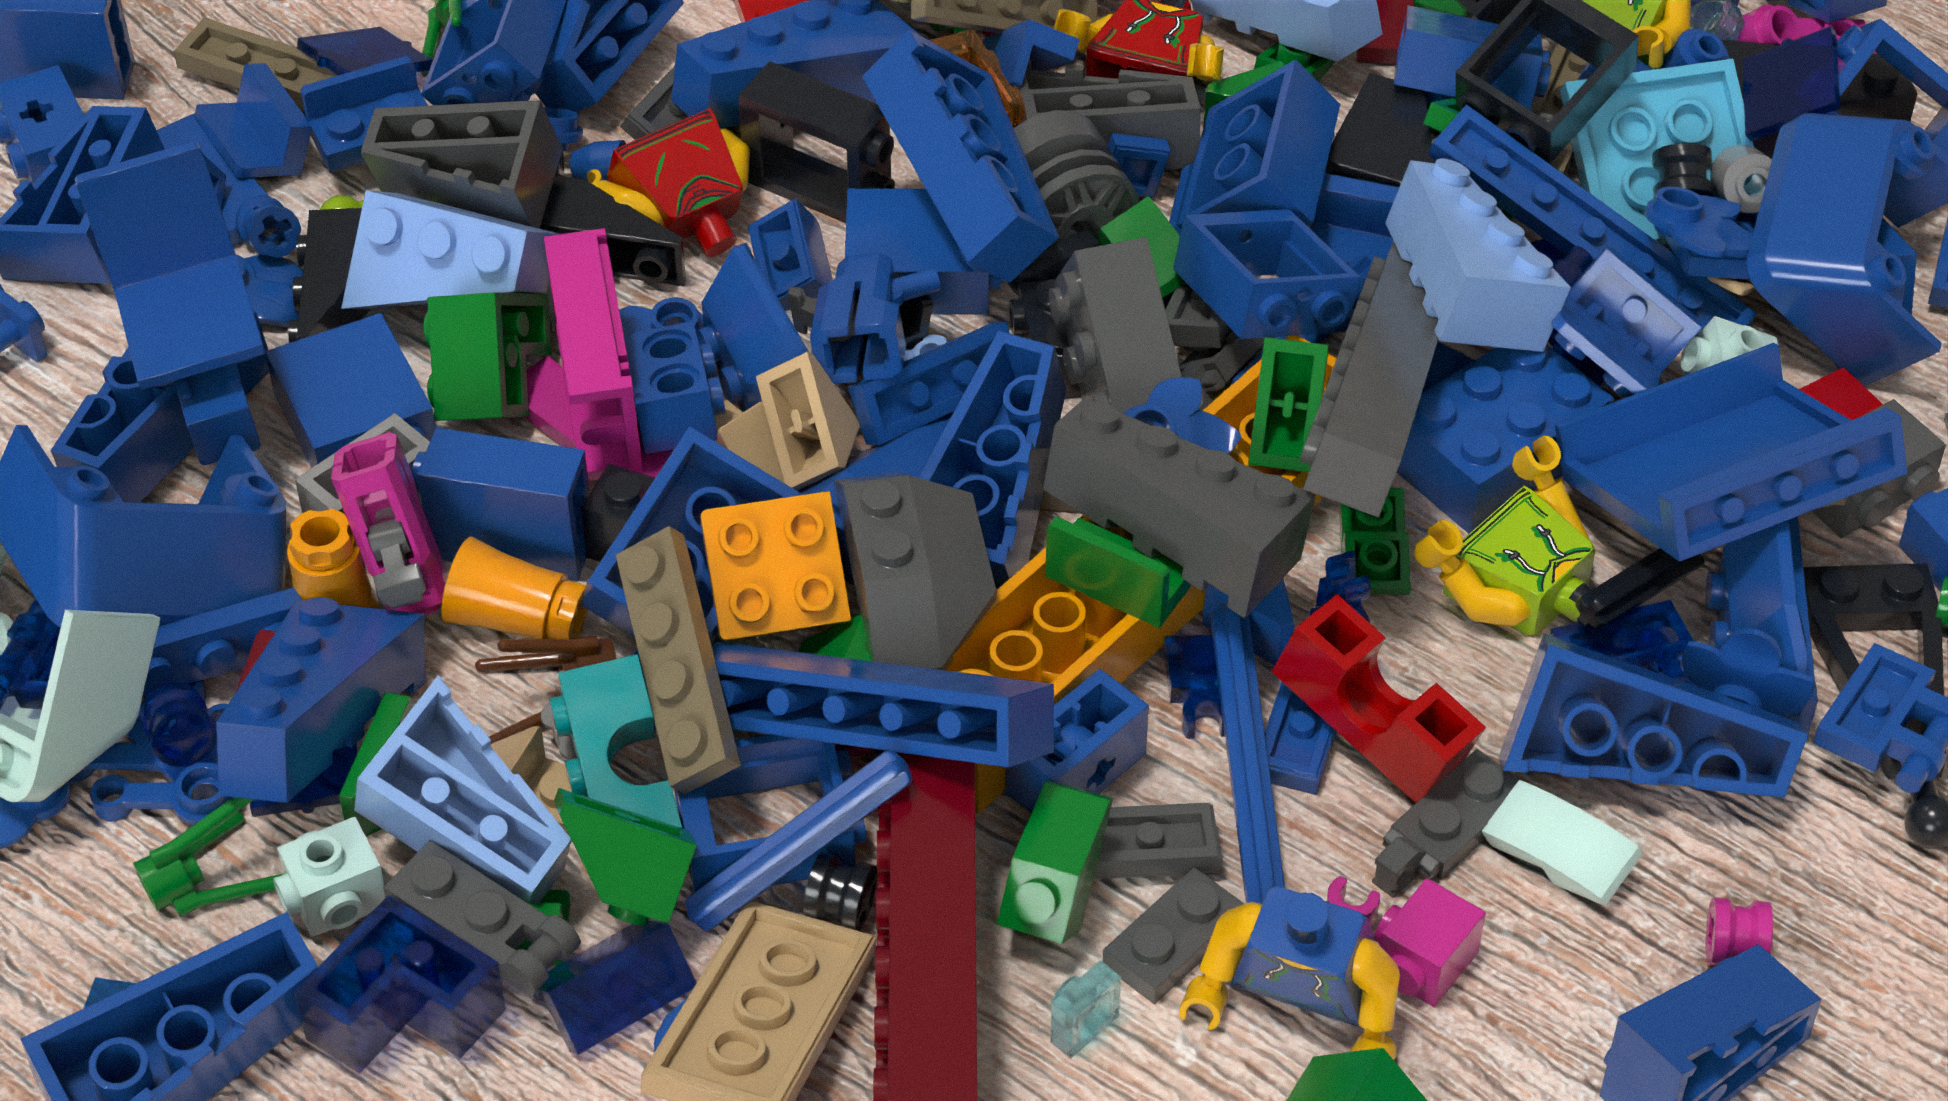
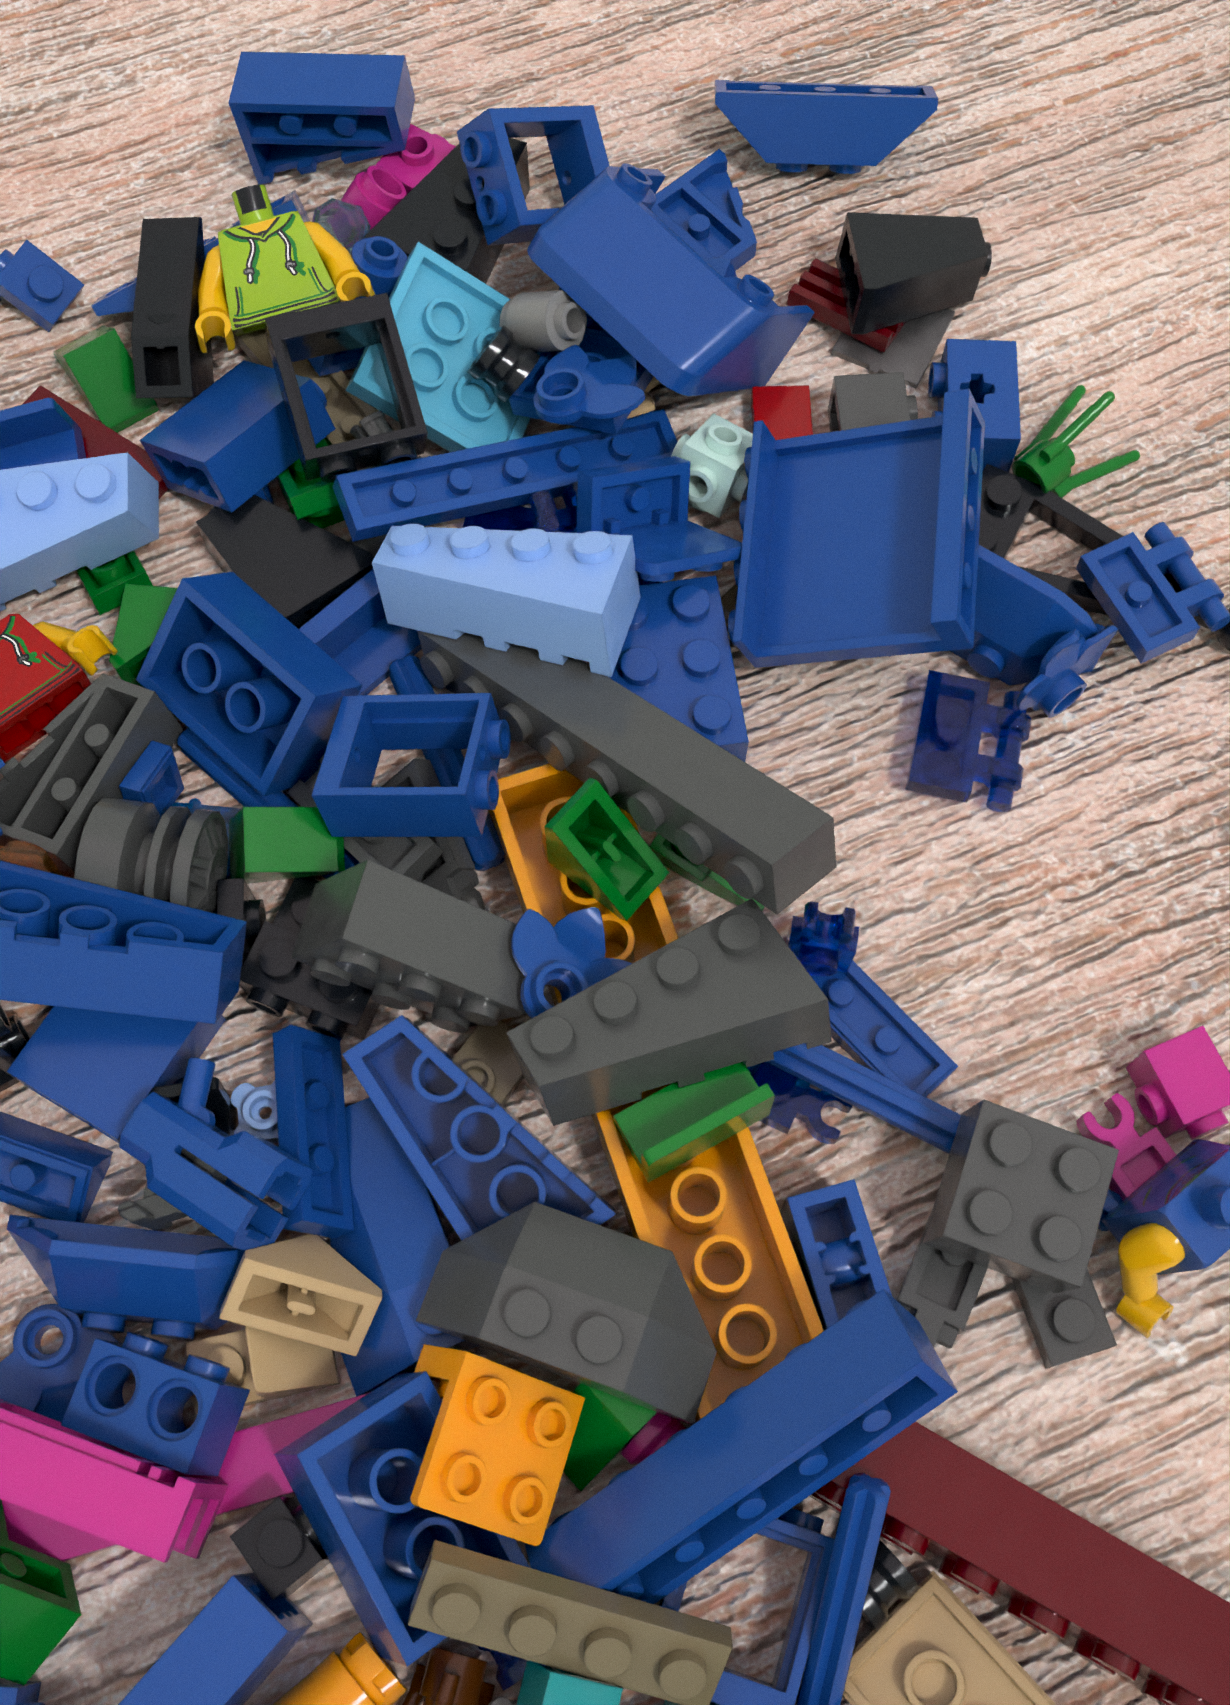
camera: 60 degrees left, 20 degrees up
(1055, 863) = (994, 1383): green slope -> none
(1084, 1008) = (1115, 1426): clear light blue plate -> none
(1219, 824) = (1021, 1197): none -> dark grey brick
(1337, 674) = (890, 985): red arch -> none
(1443, 824) = (1050, 986): dark grey hinge -> none
(1522, 559) = (823, 742): torso -> none
(1564, 841) = (1130, 912): light aqua slope -> none
(1624, 722) = (1067, 778): blue wedge -> none
(1633, 588) = (912, 703): black axle -> none
(1790, 81) = (479, 220): clear blue piece -> none

